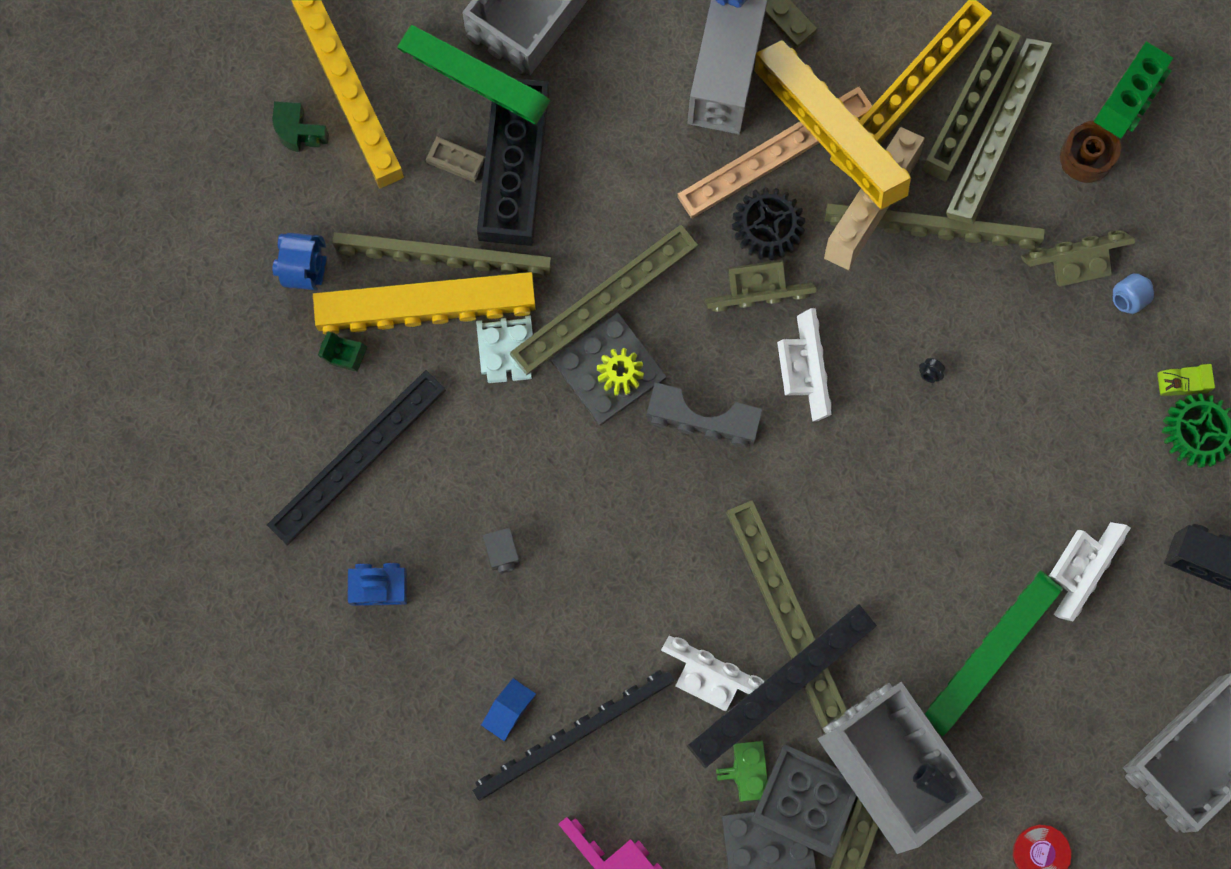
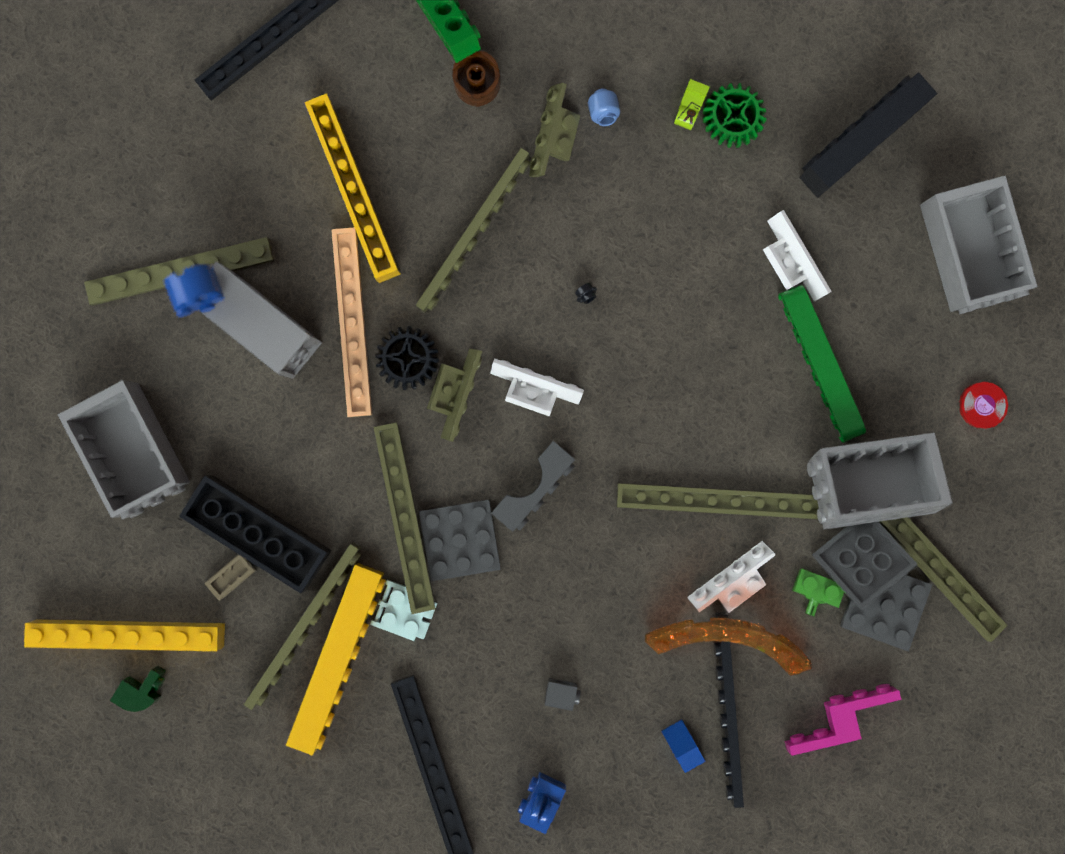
camera: 65 degrees left, 10 degrees up
(300, 261) = (253, 742): blue brick -> none
(342, 352) = (343, 742): dark green bracket -> none
(474, 74) = (169, 532): green beam -> none
(610, 375) = (471, 544): neon yellow gear -> none
(662, 695) = (734, 631): none -> clear orange plate
(781, 686) = (772, 536): black plate -> none
(832, 124) = (356, 269): yellow brick -> none
(863, 214) = (432, 268): tan brick -> none
(932, 781) = (904, 464): black cone -> none
(971, 102) = (390, 148): olive brick -> none
(999, 131) = (424, 139): olive plate -> none

